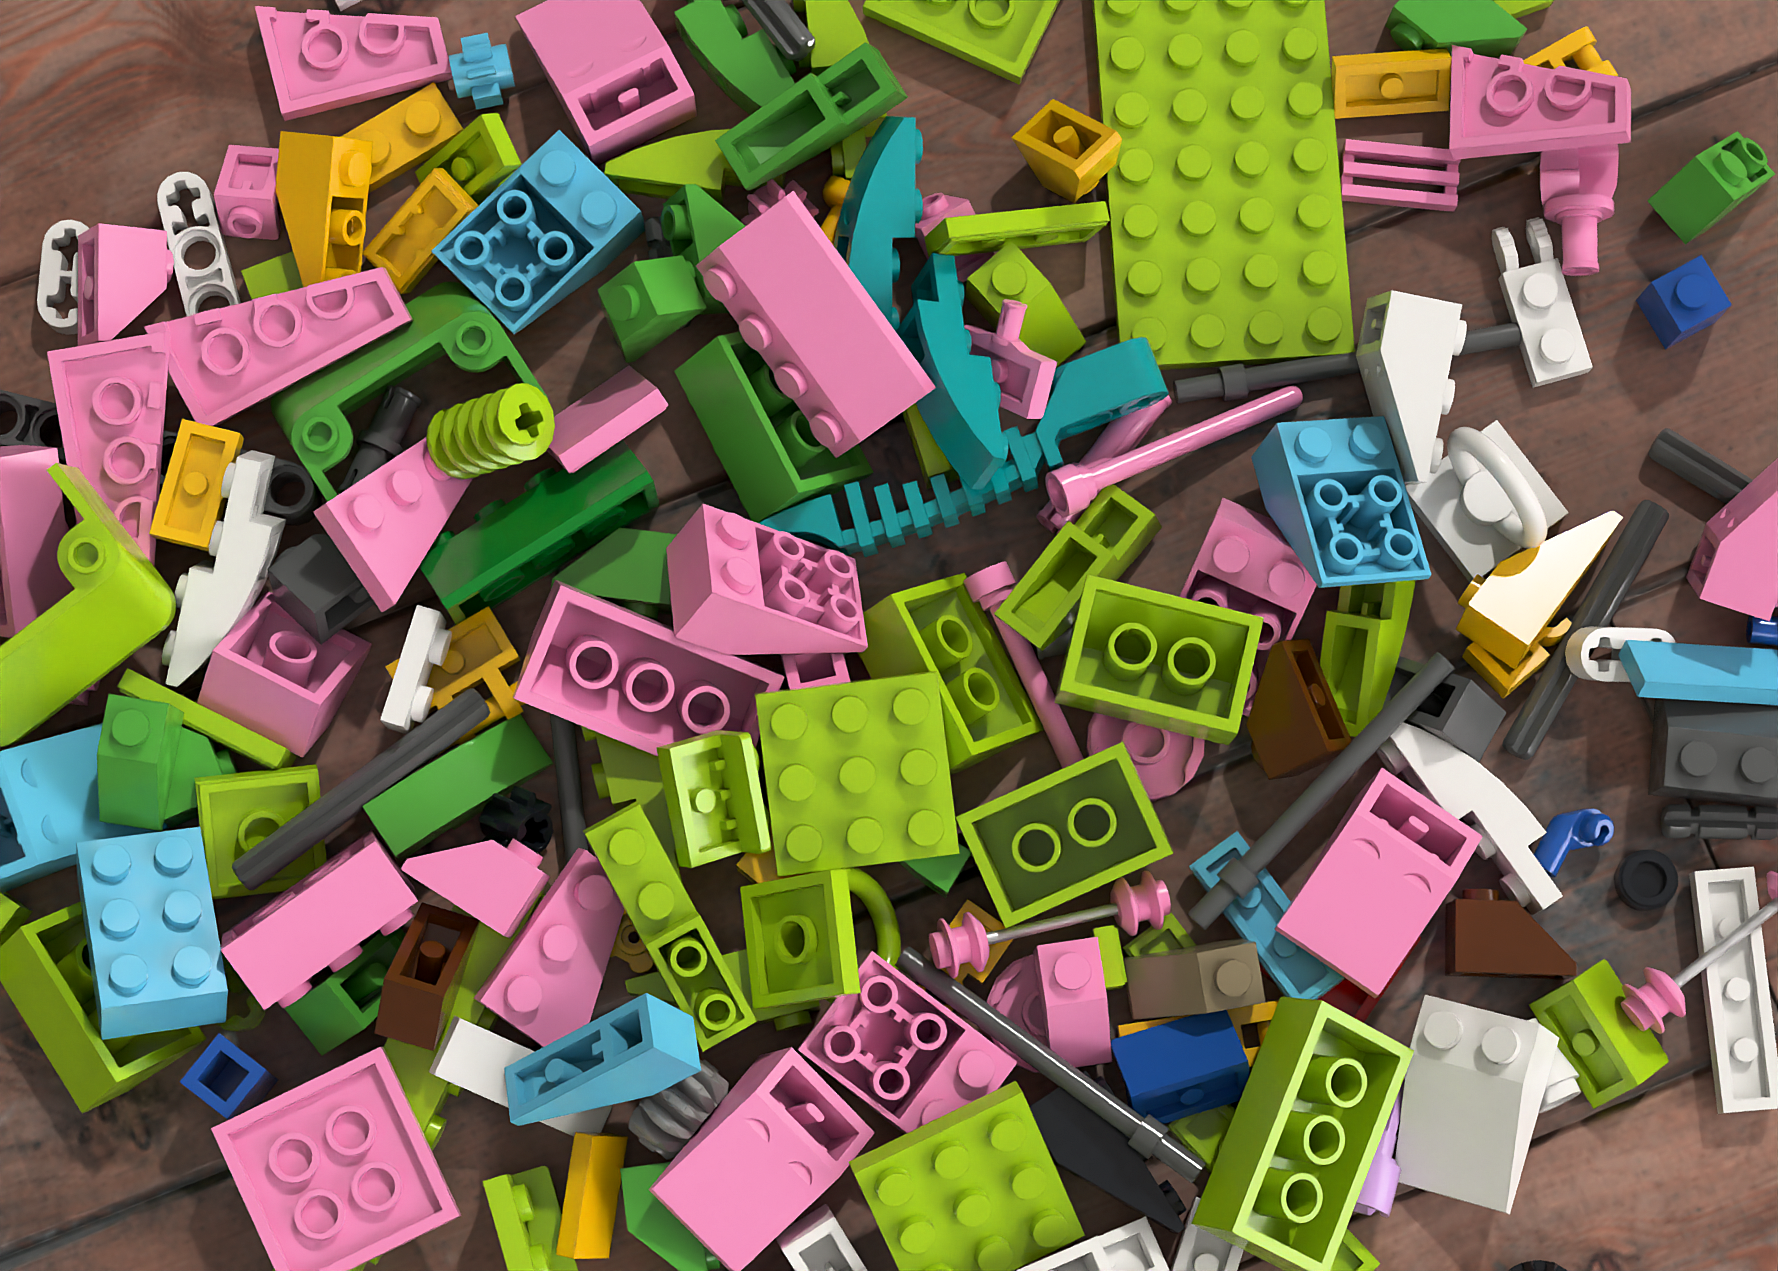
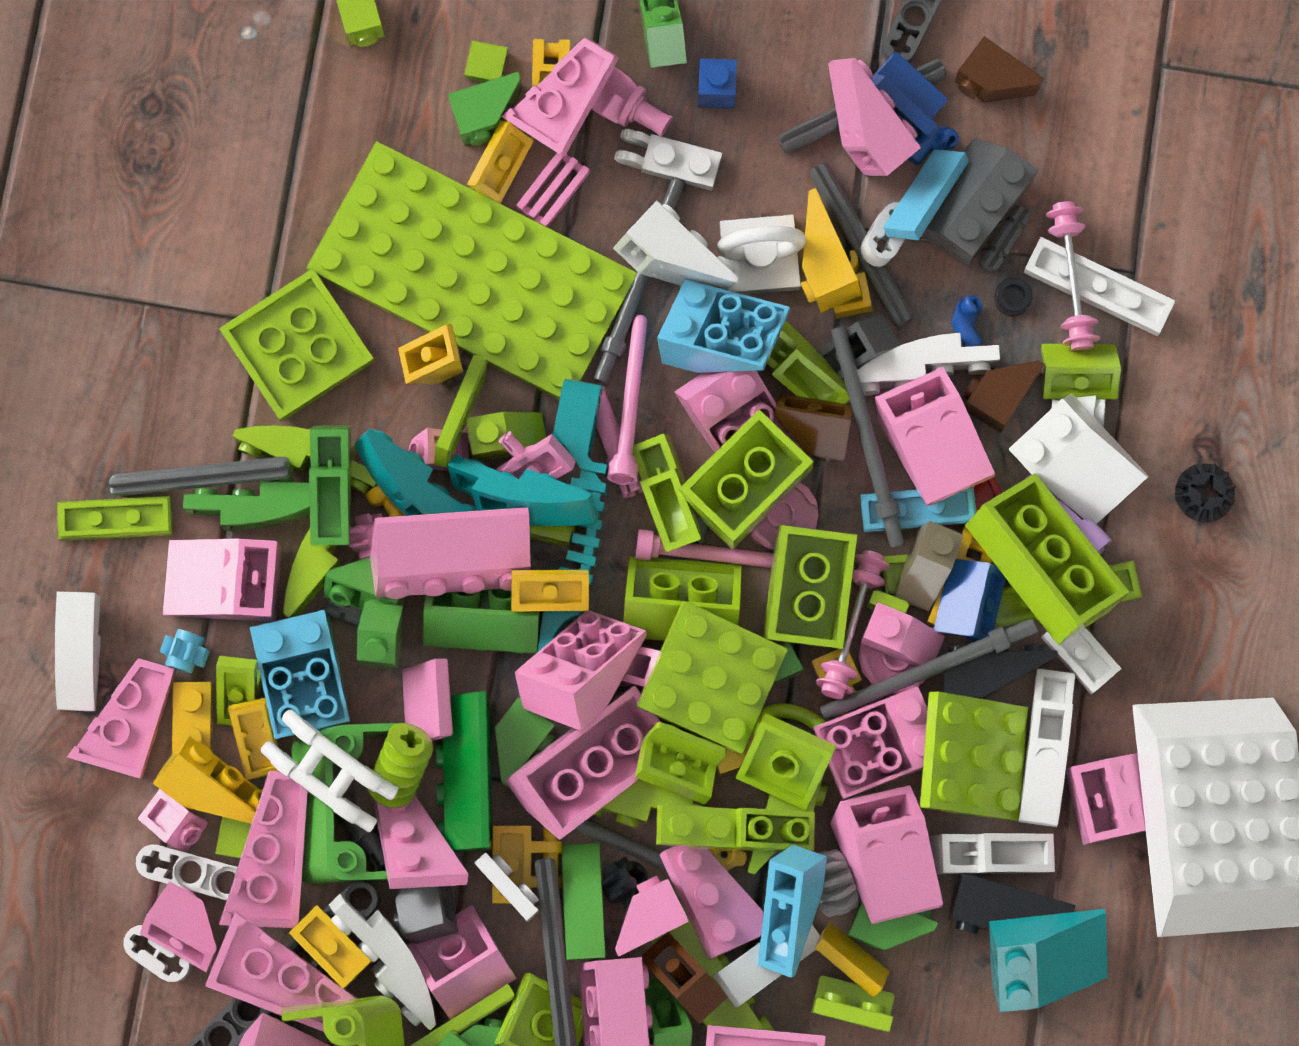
camera: 55 degrees left, 0 degrees up
(441, 368) = (350, 767): none -> white piece
(843, 486) = (549, 590): none -> yellow plate

